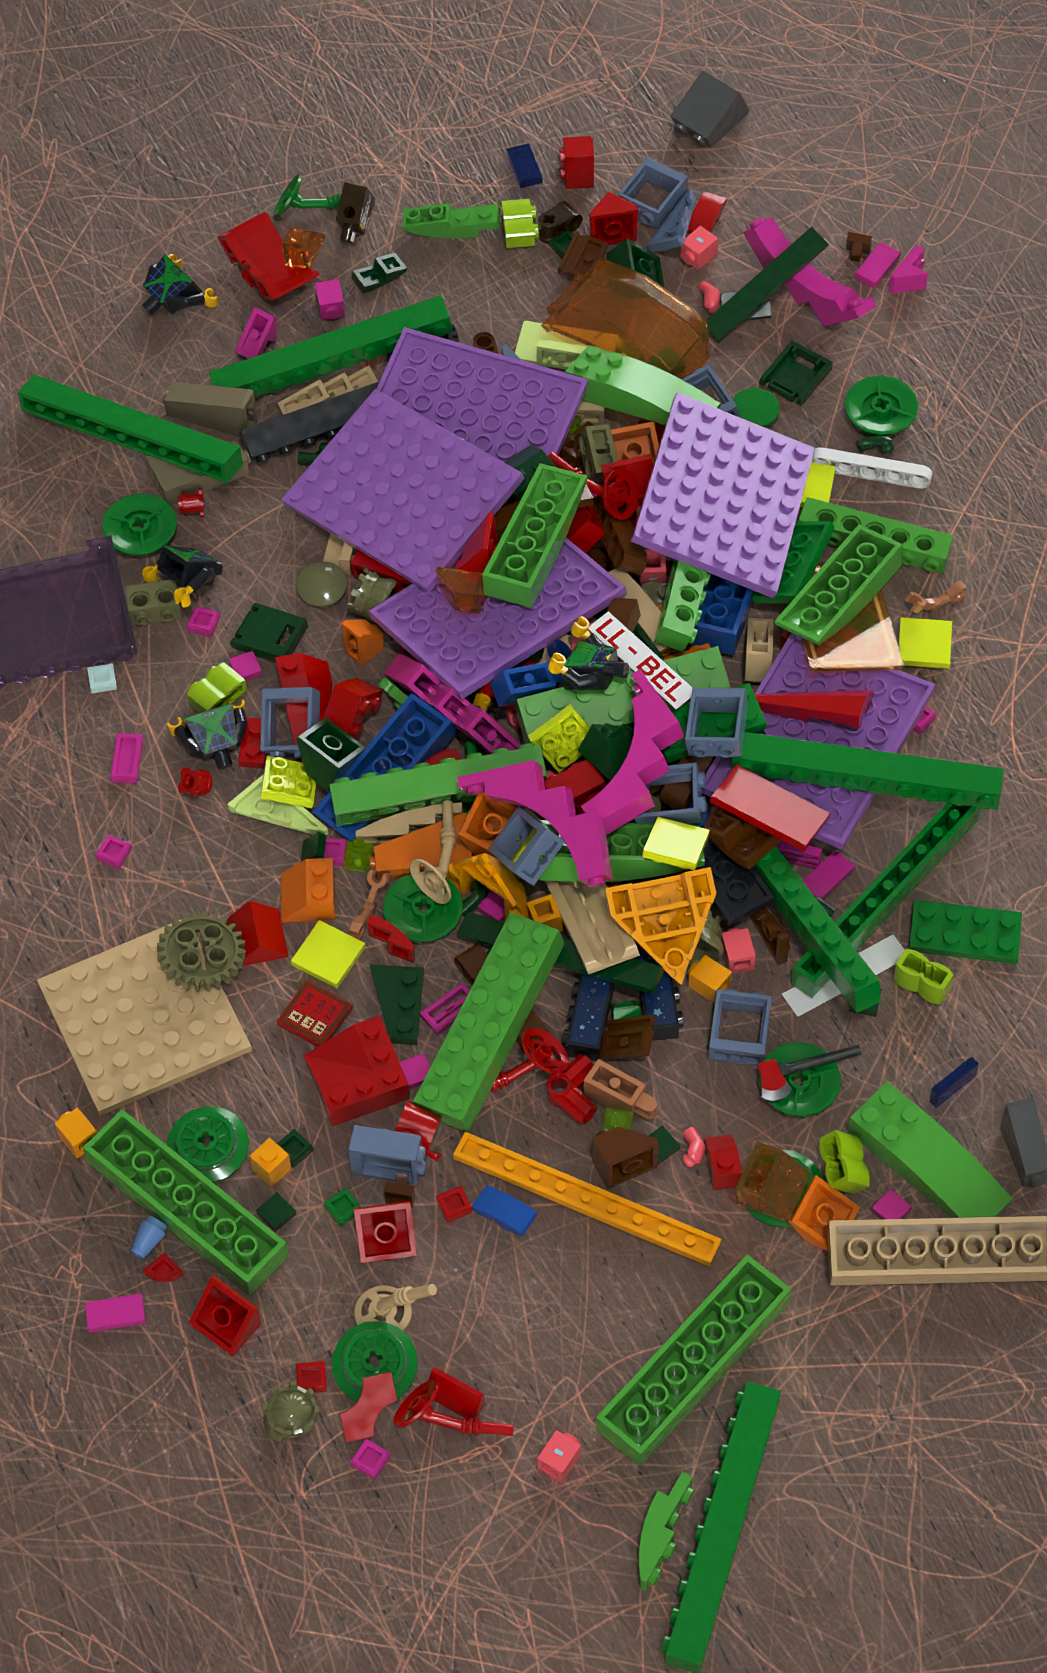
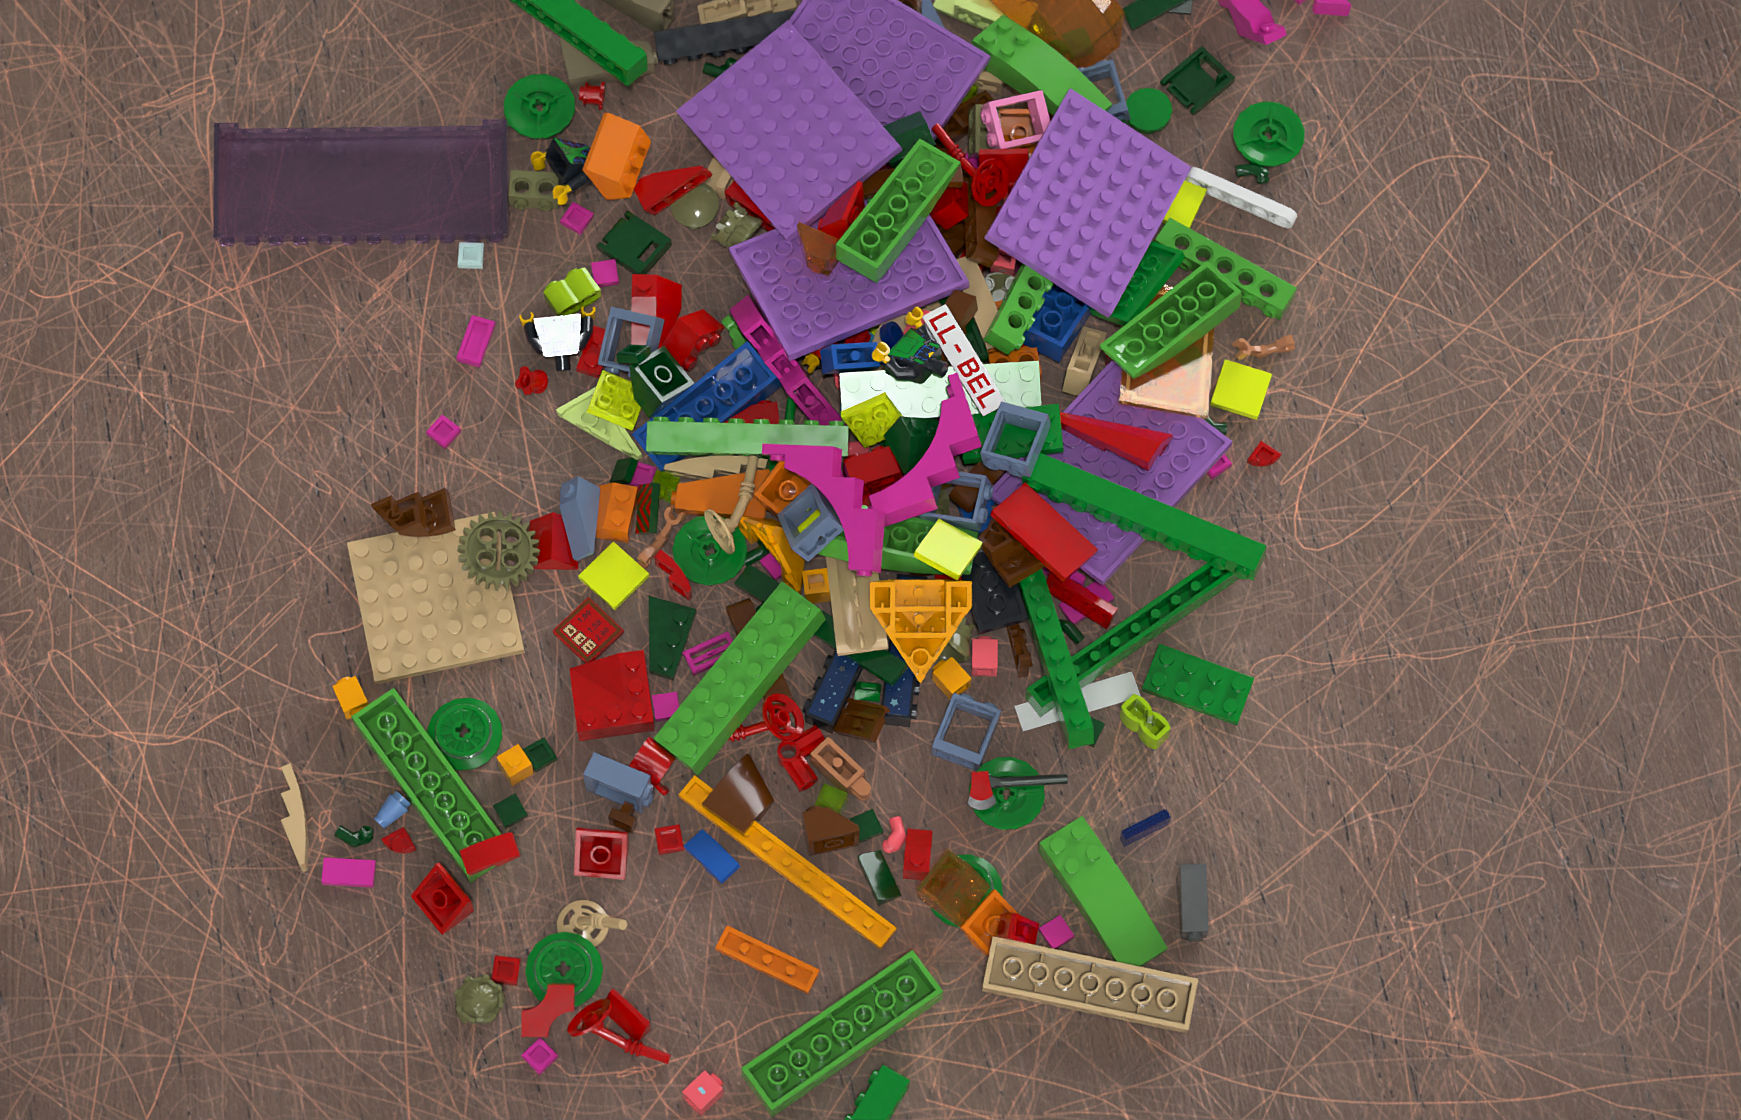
camera: 10 degrees right, 10 degrees up
(45, 1272) = (296, 823): none -> tan slope
(106, 936) = (417, 514): none -> reddish brown slope
(116, 1276) = (357, 838): none -> dark green arm
(232, 551) = (616, 156): none -> orange slope
(267, 1251) = (490, 852): none -> red slope
(278, 897) = (580, 512): none -> sand blue slope
(288, 571) = (665, 187): none -> red slope
(297, 727) = (633, 354): none -> dark green tile
(342, 1207) = (570, 819): green tile -> none
(347, 879) = (647, 508): none -> dark green tile
(362, 640) = (717, 271): orange slope -> none
(519, 1143) = (740, 796): none -> reddish brown slope
(592, 1303) = (767, 960): none -> orange plate
(648, 421) = (1038, 114): none -> bright pink window
(687, 1193) = (878, 877): none -> dark green slope
(825, 871) = (1082, 600): none -> red plate
(844, 1162) = (1024, 881): lime brick -> none
(849, 1207) = (1017, 928): none -> red slope
(966, 700) = (1263, 455): none -> red tile

